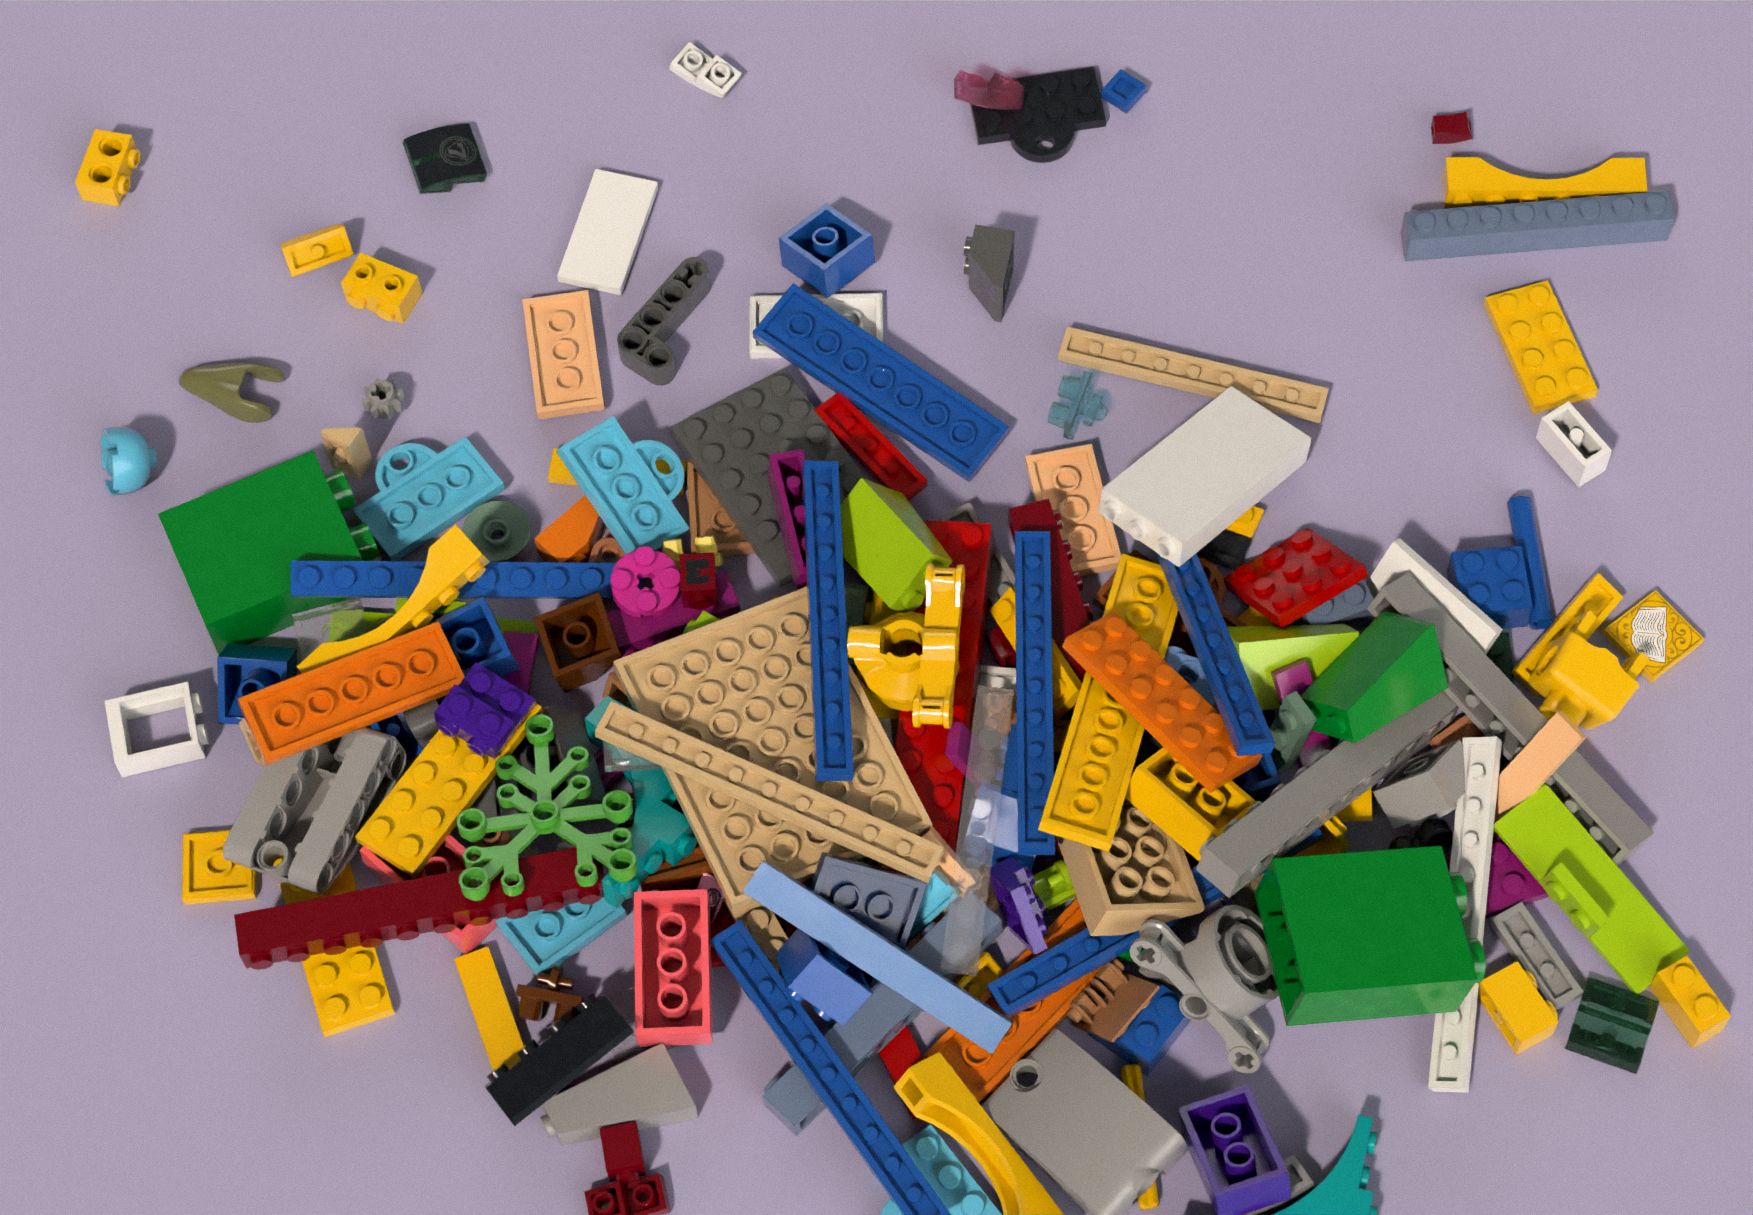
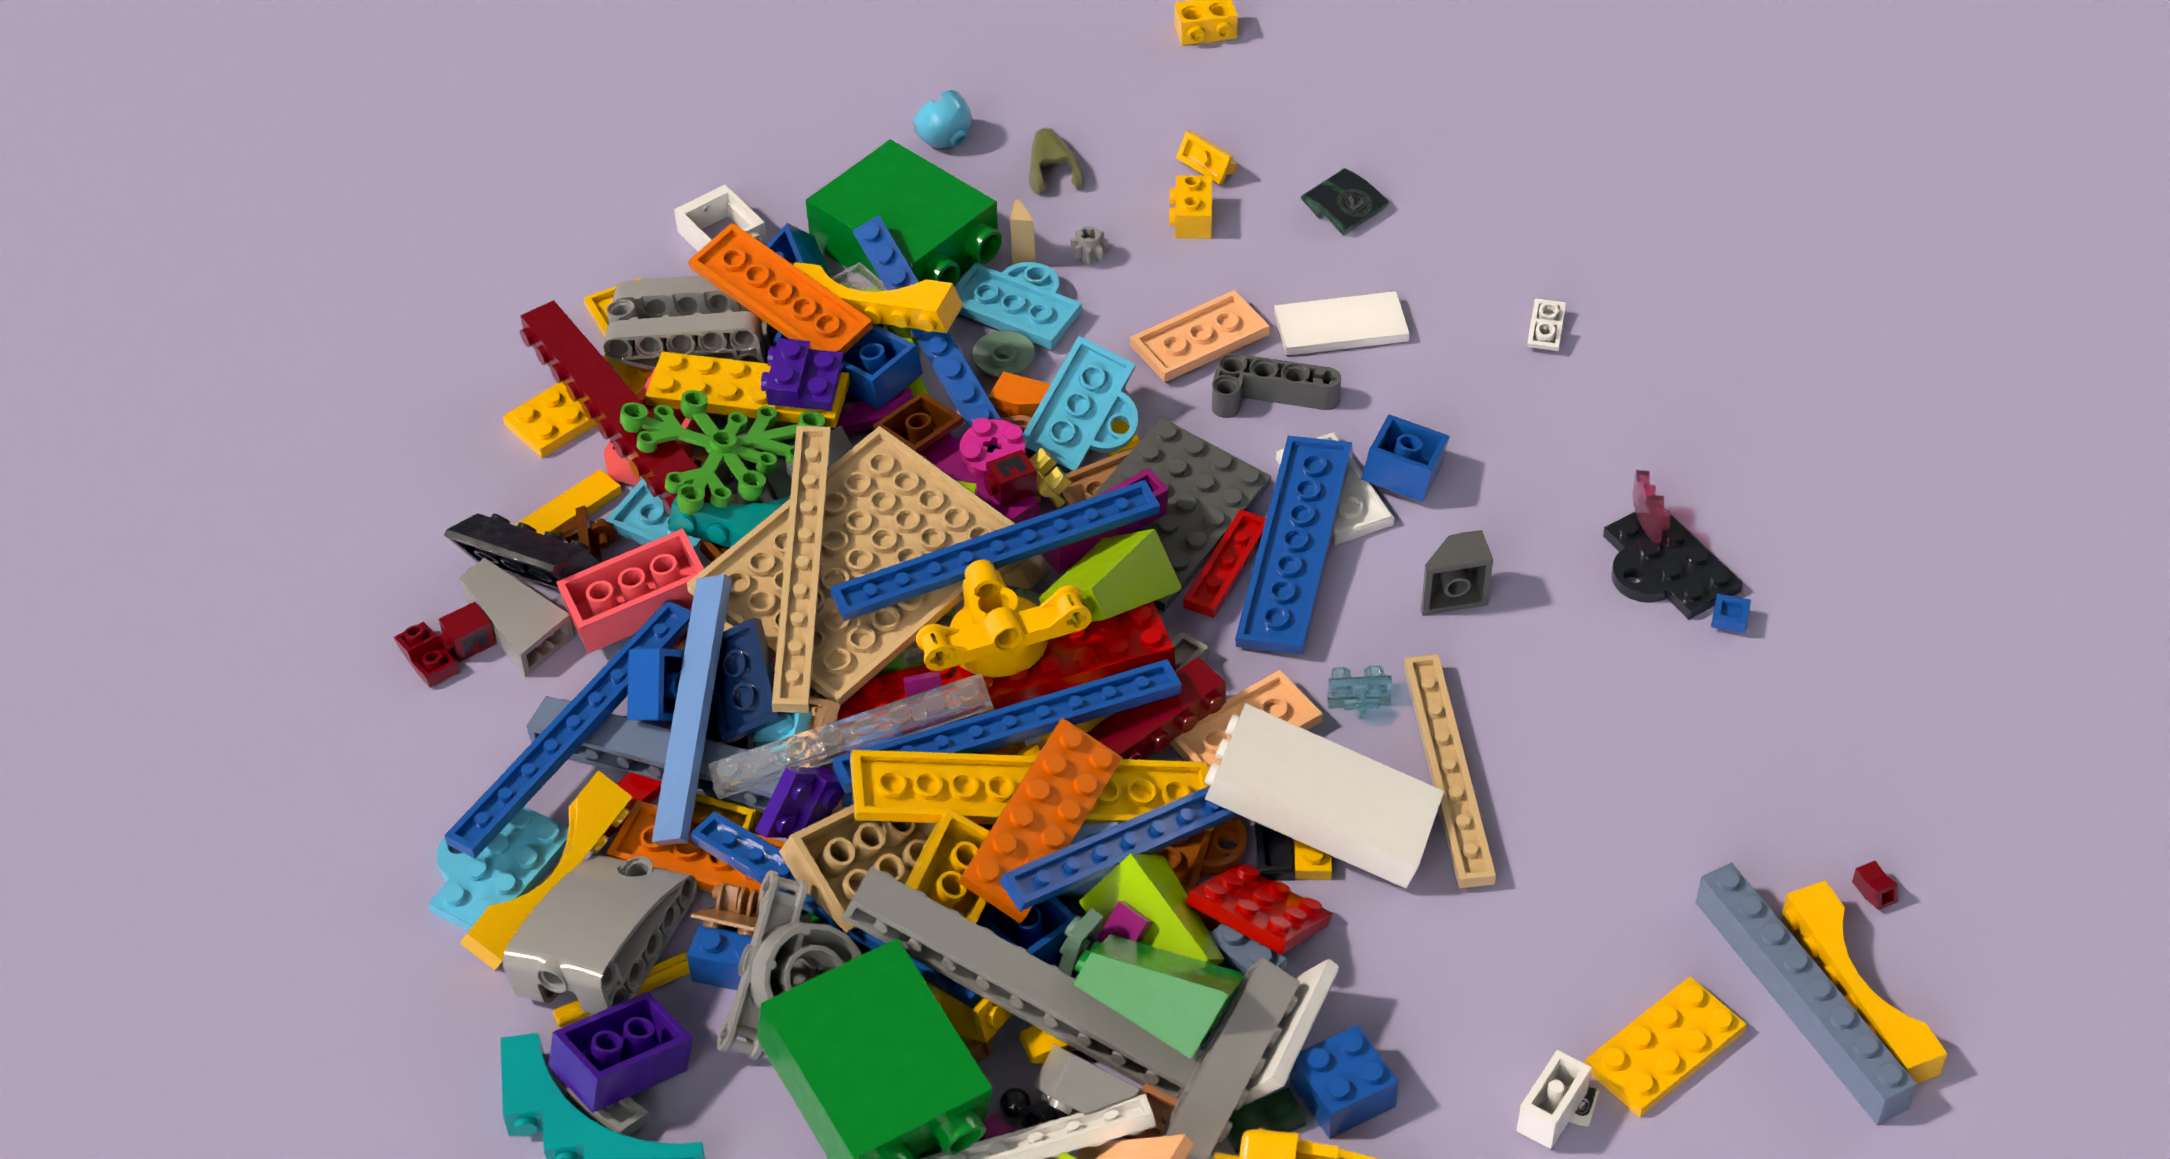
camera: 65 degrees right, 15 degrees down
(1526, 536) = (1400, 1111): blue piece -> none

